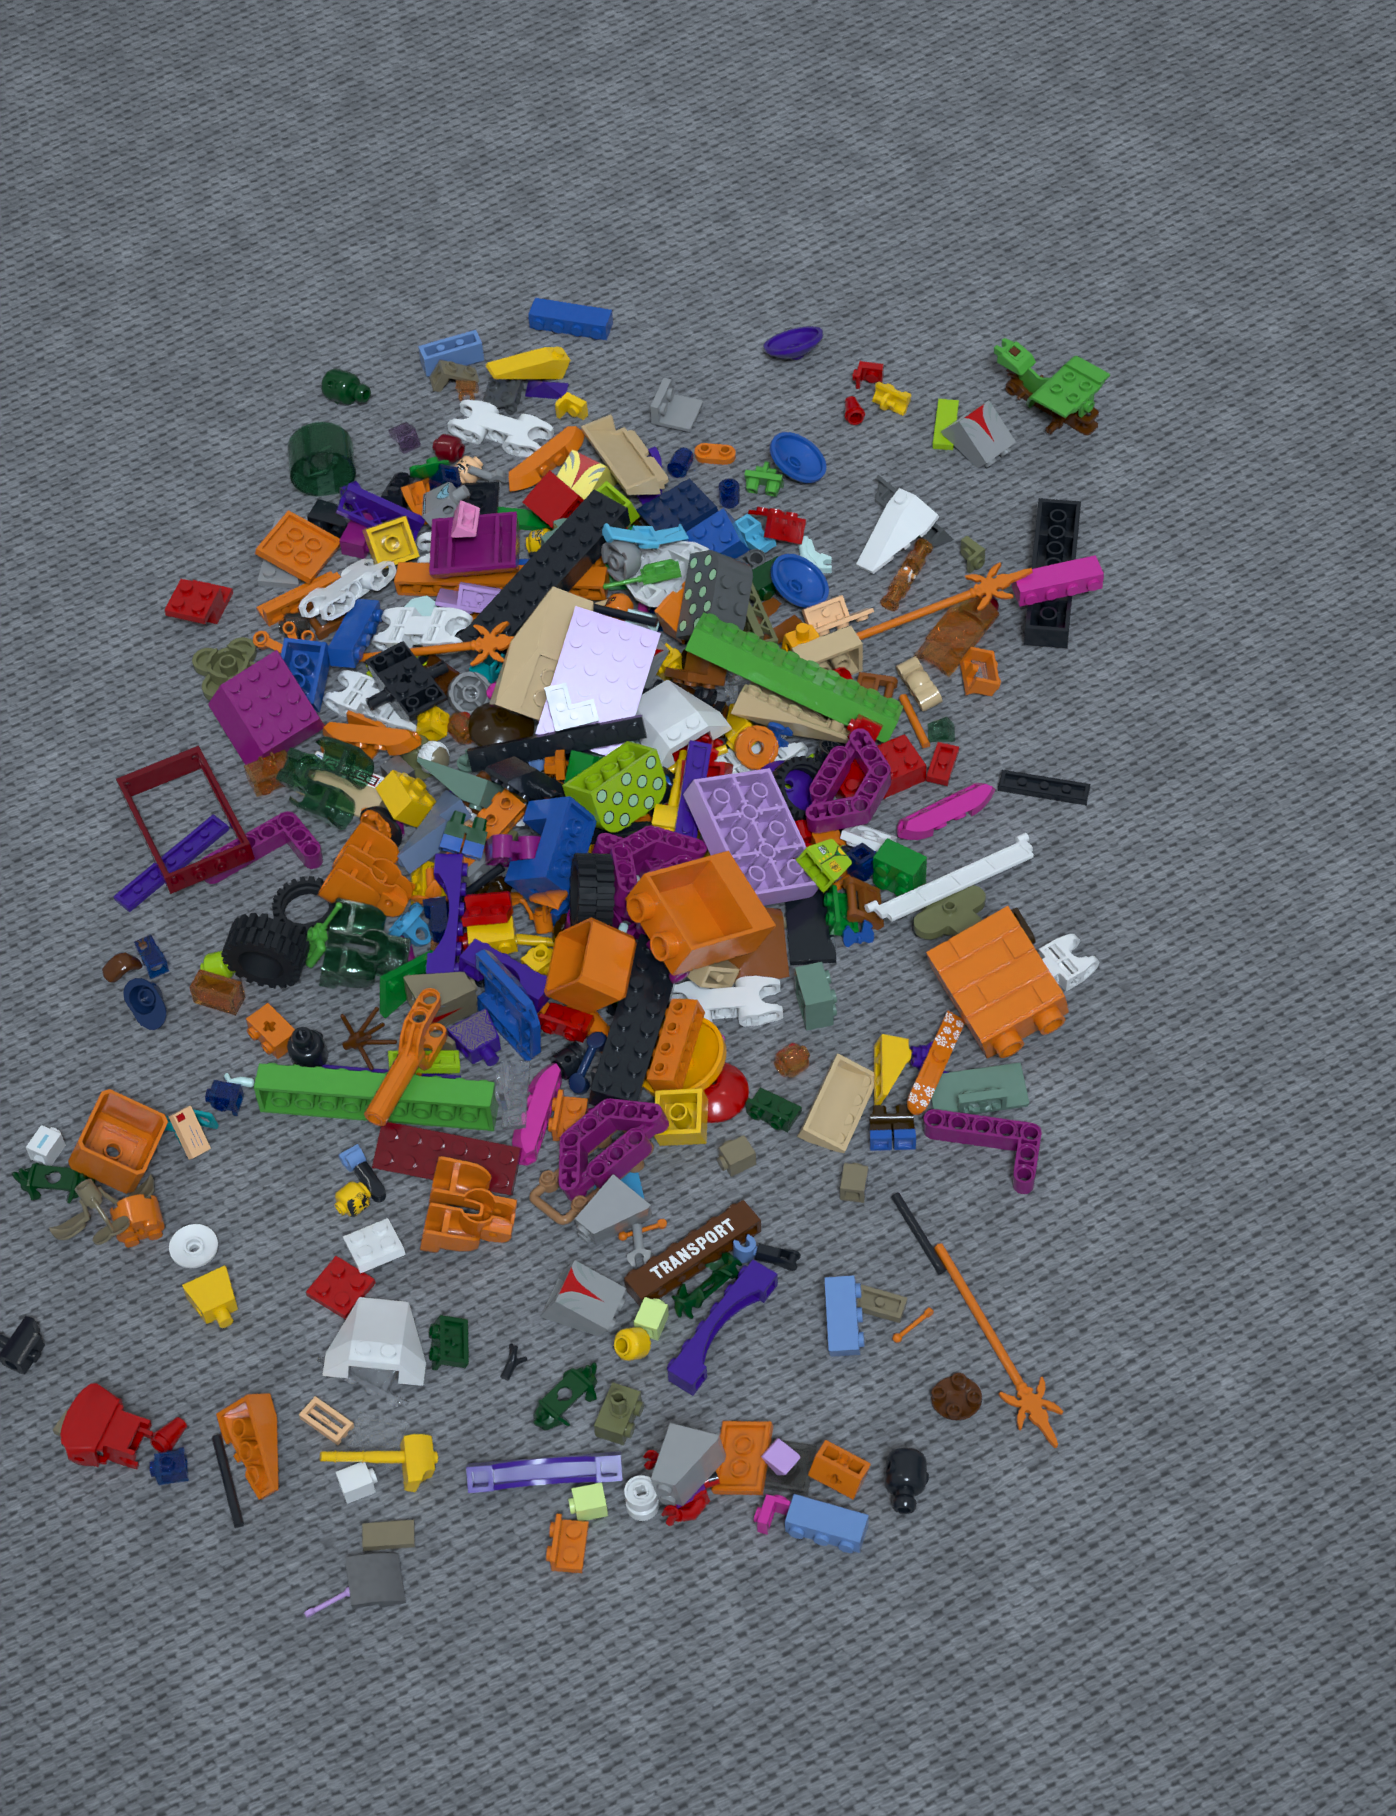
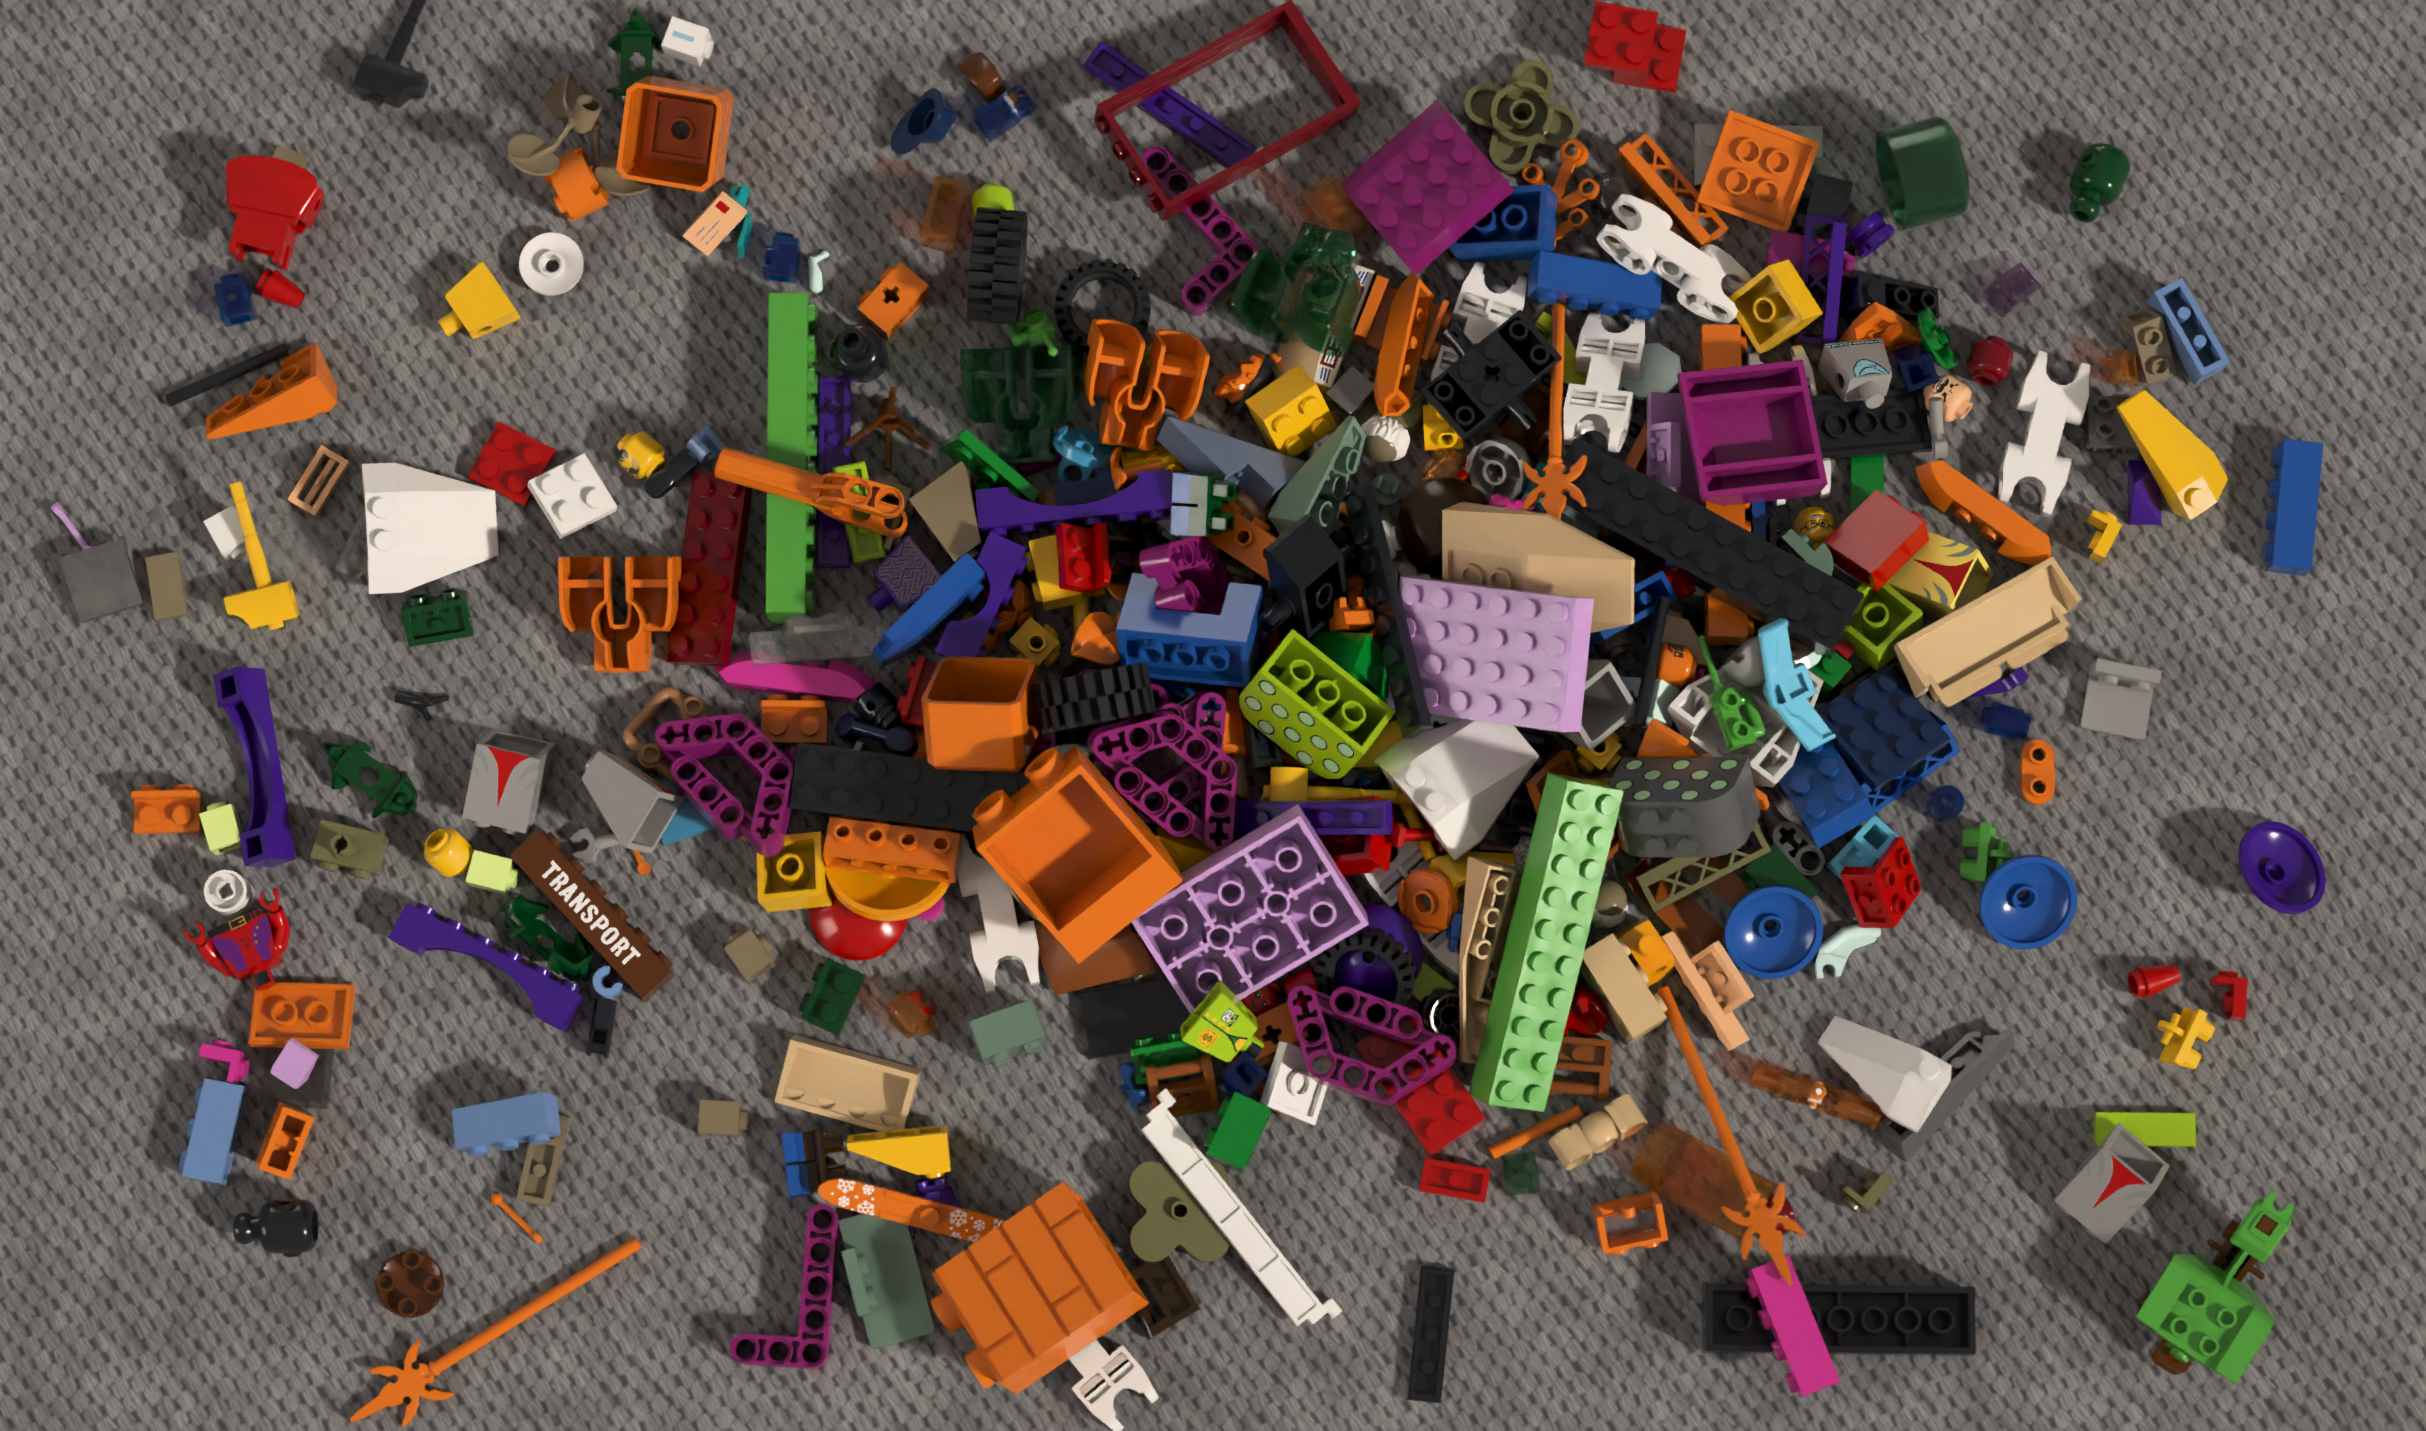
camera: 80 degrees right, 25 degrees up
(465, 520) = (1794, 410): bright pink slope -> none
(564, 713) = (1420, 617): plate -> none
(685, 1463) = (252, 938): light grey slope -> none
(865, 723) = (1474, 1055): red bracket -> none
(918, 1233) = (656, 1213): black bar -> none
(935, 816) = (1365, 1191): dark pink brick -> none

